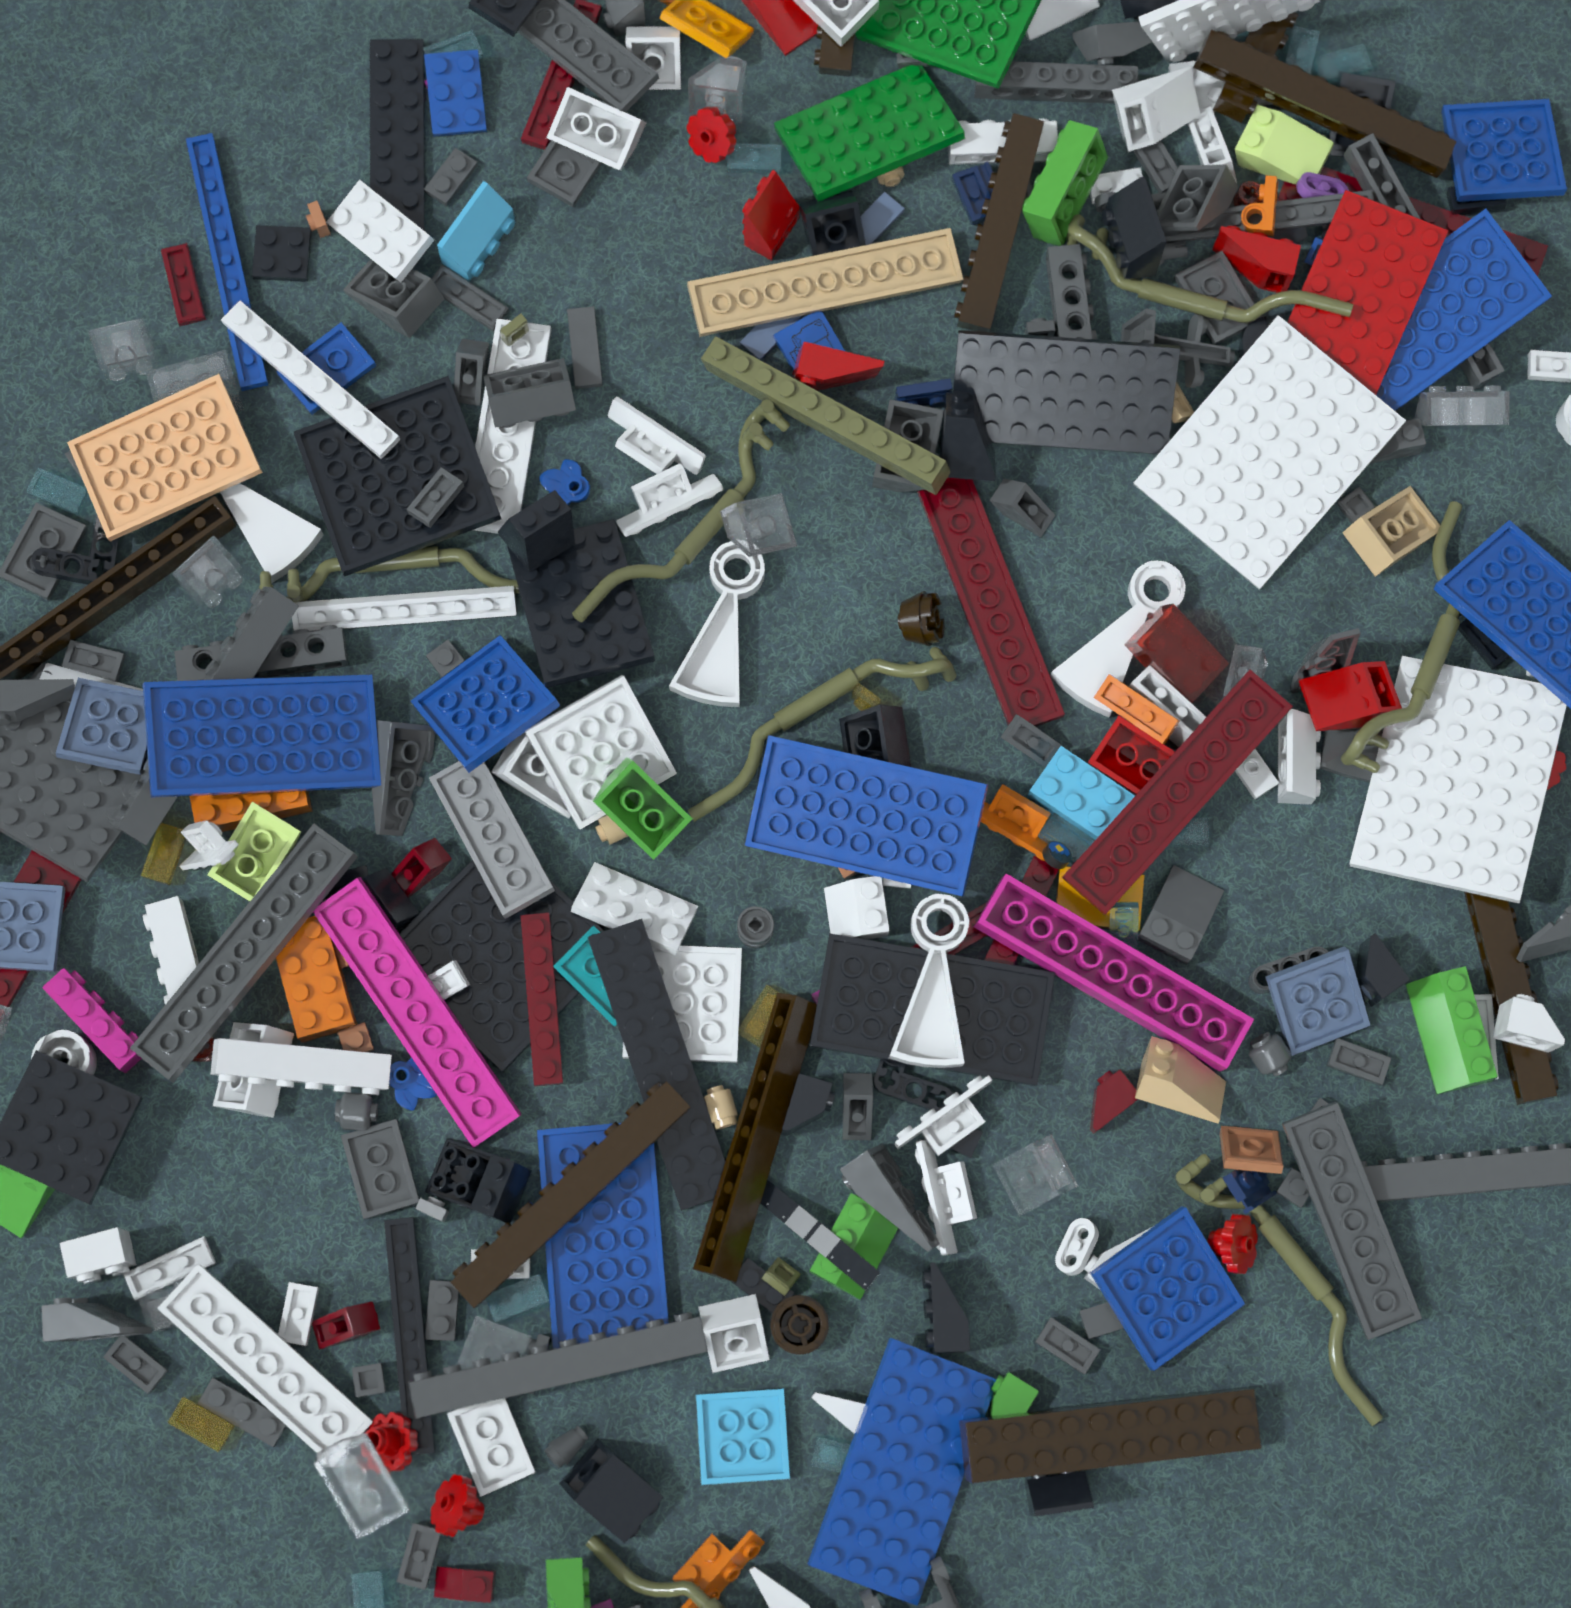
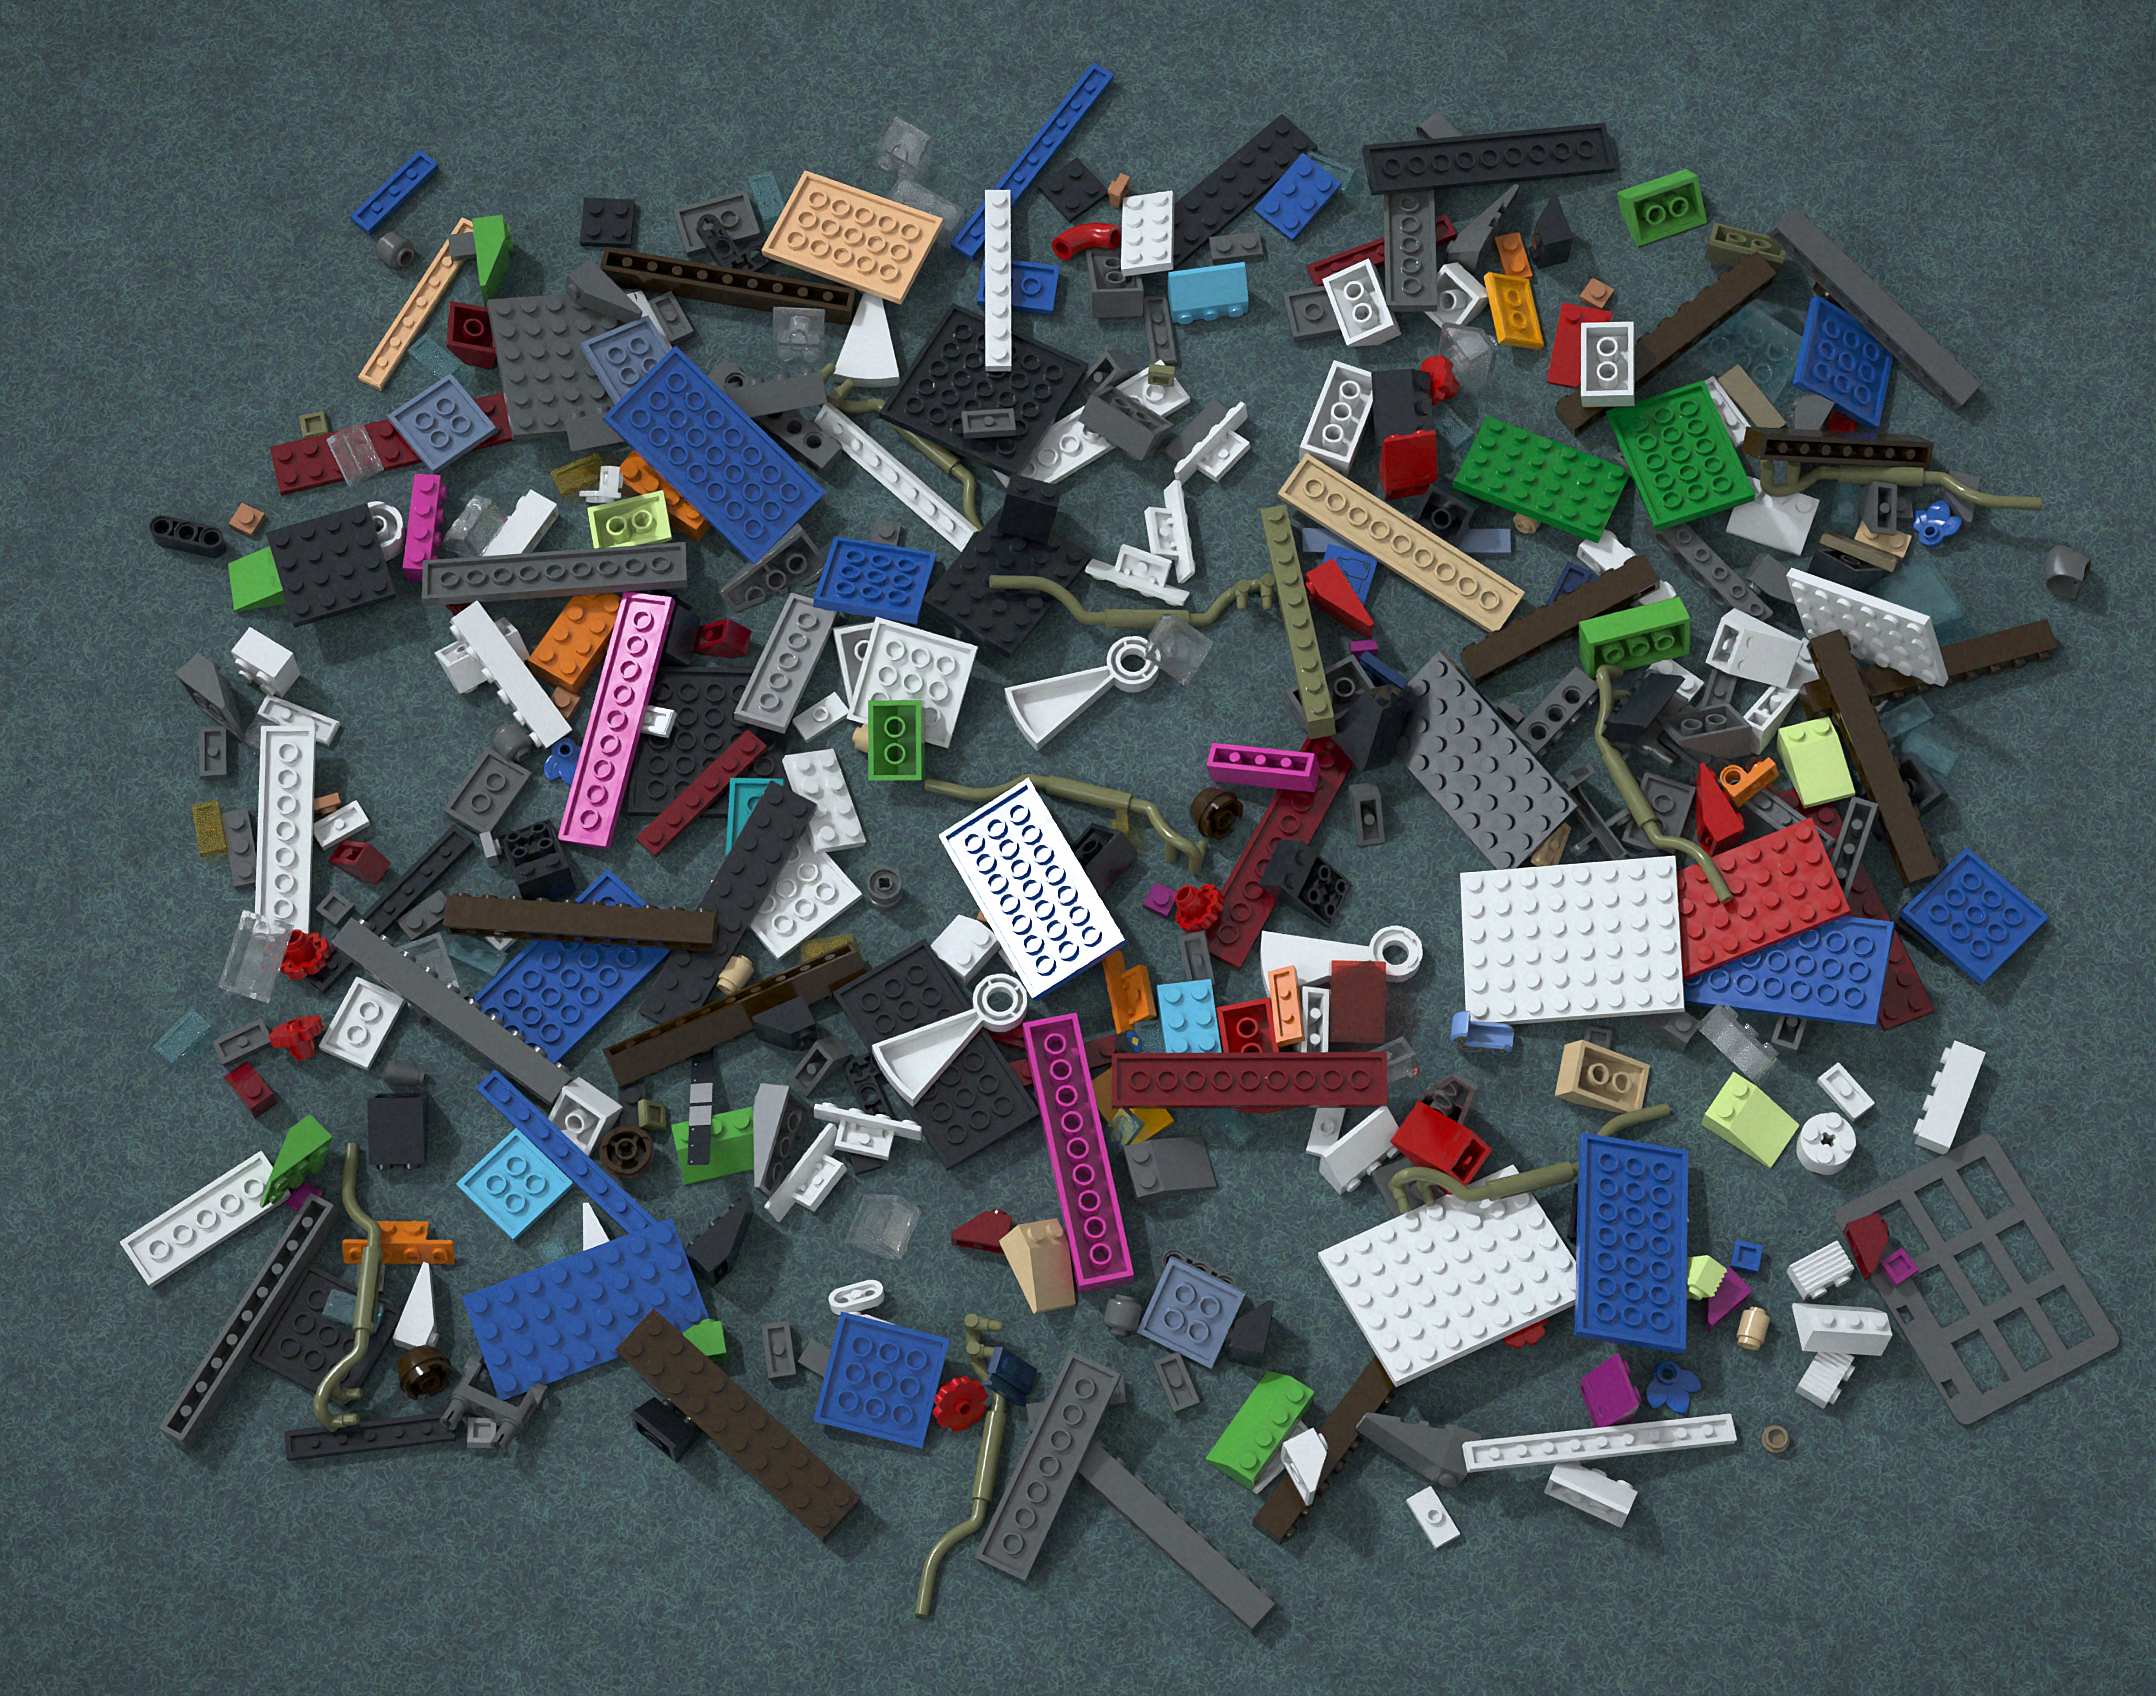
camera: 50 degrees right, 10 degrees down
(136, 980) = (475, 527): none -> clear slope
(183, 284) = (990, 149): dark red tile -> none
(271, 1309) = (327, 804): none -> nougat plate
(334, 280) = (1086, 237): none -> red cylinder
(557, 847) = (820, 717): none -> white plate
(564, 480) = (1084, 501): blue plate -> none
(617, 344) = (1218, 450): none -> white bracket
(676, 229) = (1339, 418): none -> white brick
(717, 177) = (1401, 403): none -> black slope
(757, 1374) = (564, 1153): none -> blue plate
(886, 389) = (1358, 648): none -> magenta plate
(921, 549) = (1263, 767): none -> dark pink brick
(952, 724) = (1160, 900): none -> magenta plate
(992, 702) = (1198, 907): none -> red plant
(1040, 604) = (1304, 881): none -> black slope
(1251, 1149) = (1036, 1355): nougat plate -> none
(1282, 585) = (1481, 1036): none -> medium blue animal
(1319, 185) = (1807, 805): medium lavender plate -> none
(1517, 454) = (1750, 1120): none -> yellowish green slope

